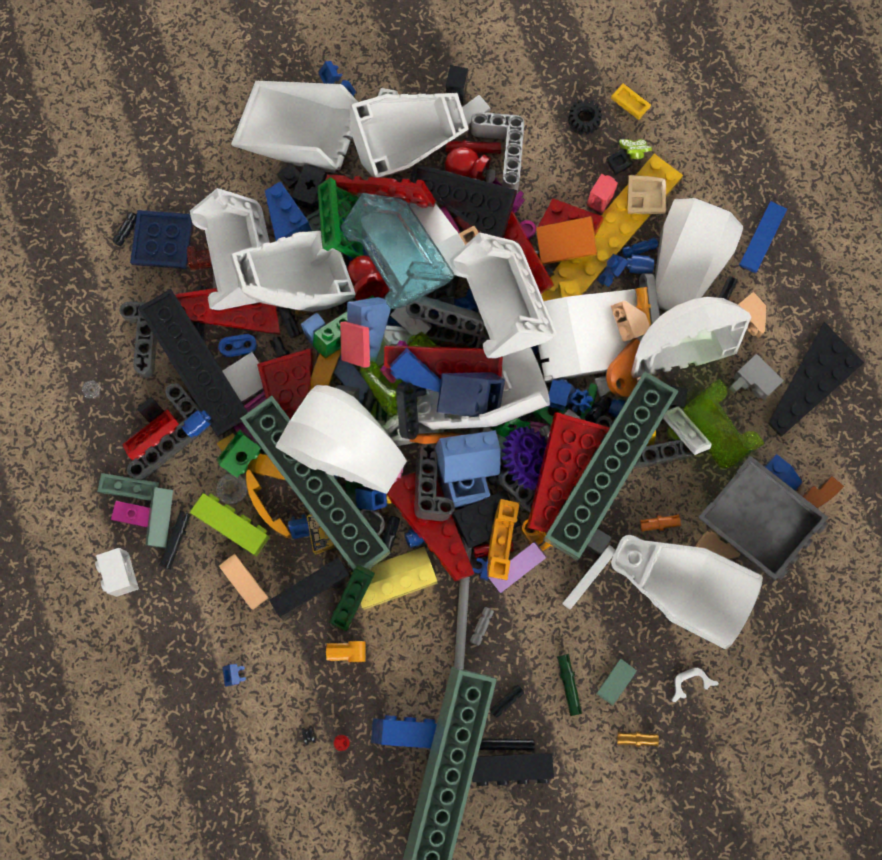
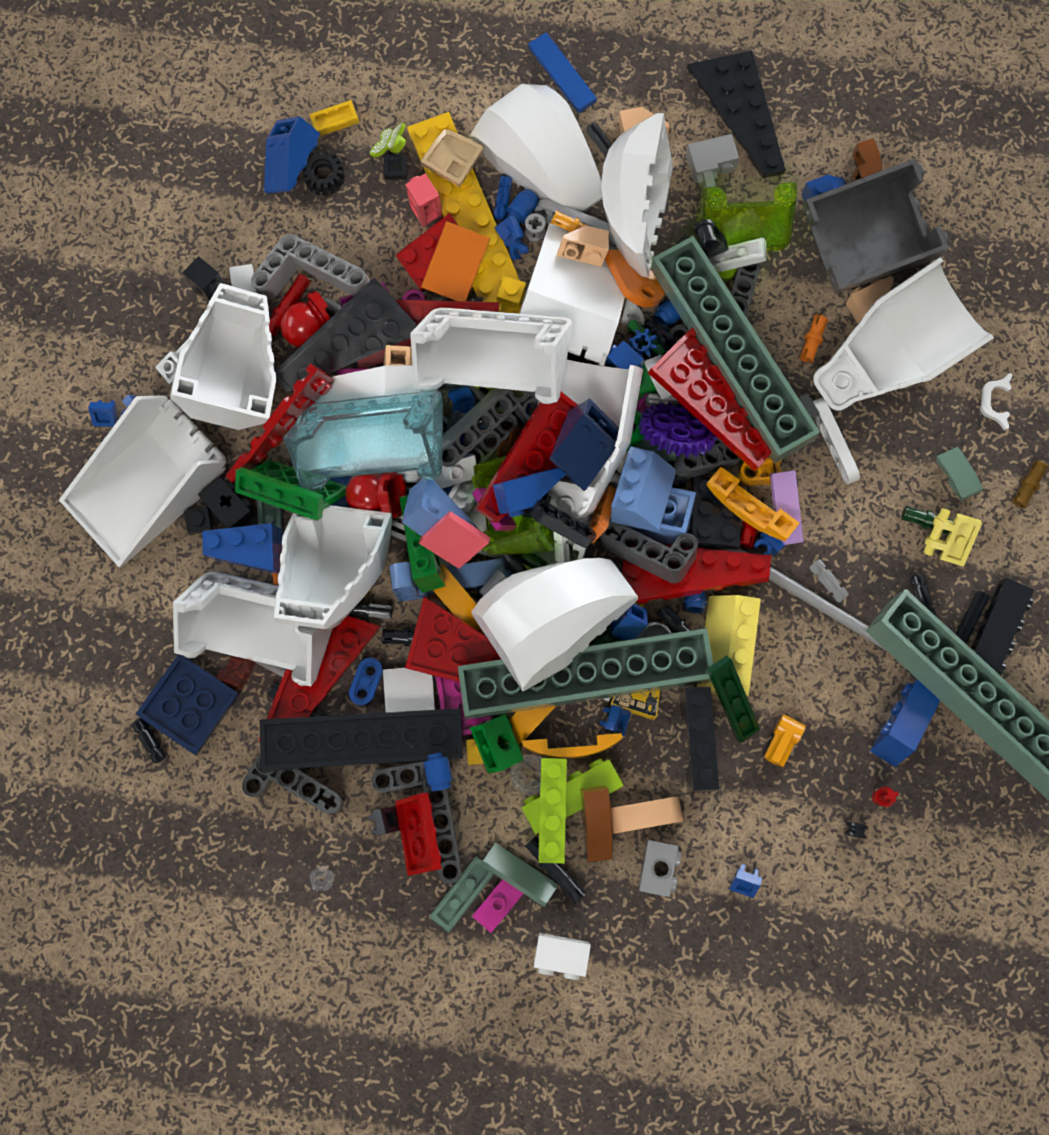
camera: 60 degrees left, 0 degrees up
(199, 607) = (649, 881): none -> light grey brick
(208, 513) = (552, 810): none -> lime brick
(219, 549) = (597, 823): none -> dark orange slope
(563, 705) = (959, 540): none -> light yellow plate
(583, 84) = (287, 153): none -> blue slope
(632, 277) = (530, 223): none -> light grey bush
(687, 407) = (710, 238): none -> black piece

